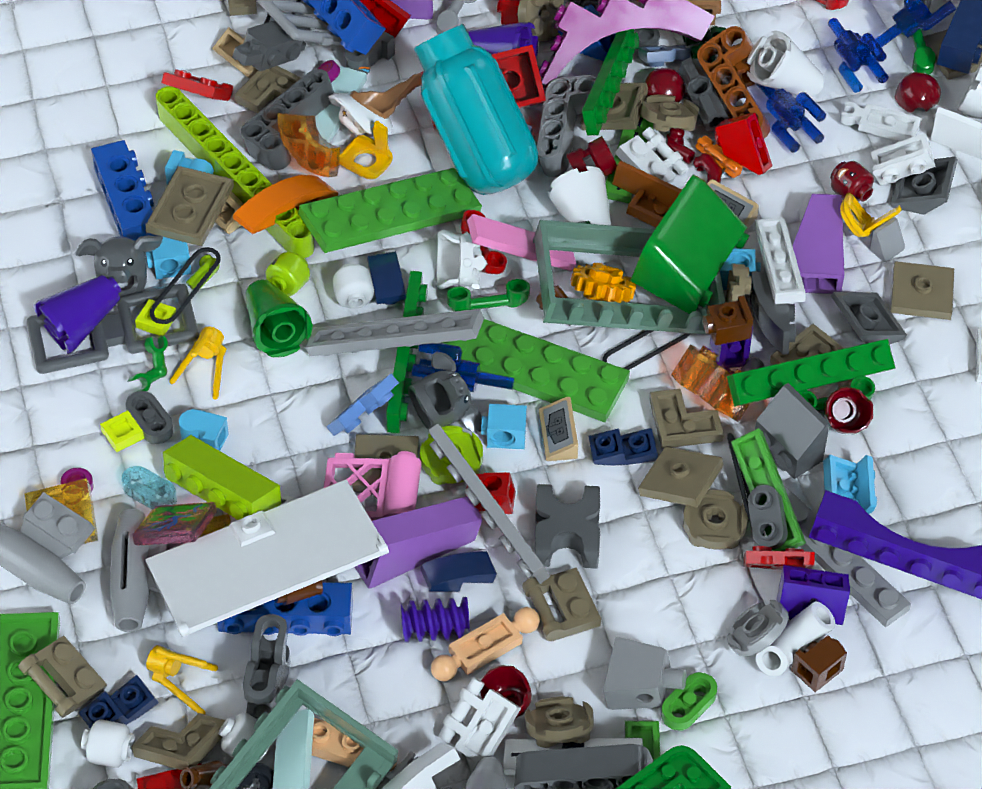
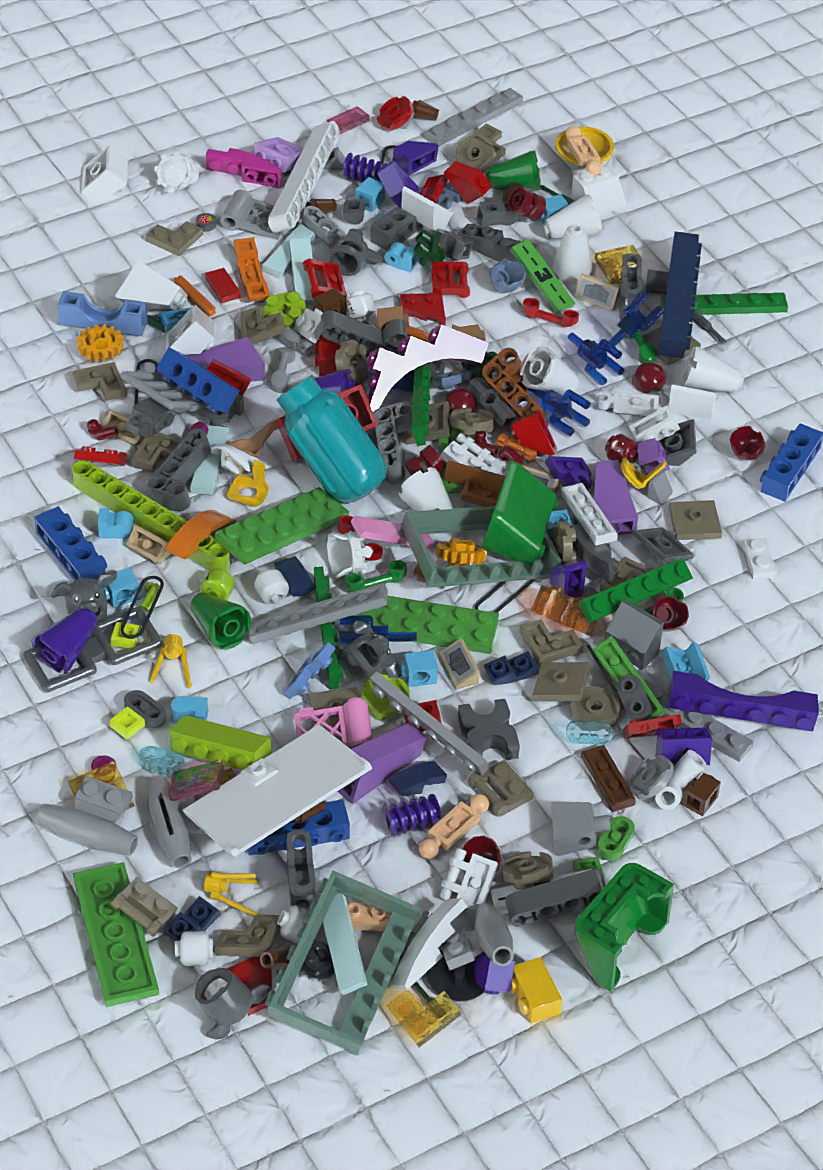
camera: 15 degrees left, 5 degrees down
(159, 367) = (140, 673): green arm -> none
(189, 206) = (127, 546): dark tan tile -> none
(209, 54) = (99, 432): none -> dark red arm
(306, 144) = (203, 487): clear orange brick -> none
(695, 558) = (588, 738): none -> clear light blue beam
(705, 617) = (608, 778): none -> reddish brown tile
(729, 321) = (570, 561): reddish brown brick -> none
(777, 199) = (570, 469): none -> dark purple plate
(888, 193) = (651, 454): none -> medium lavender window

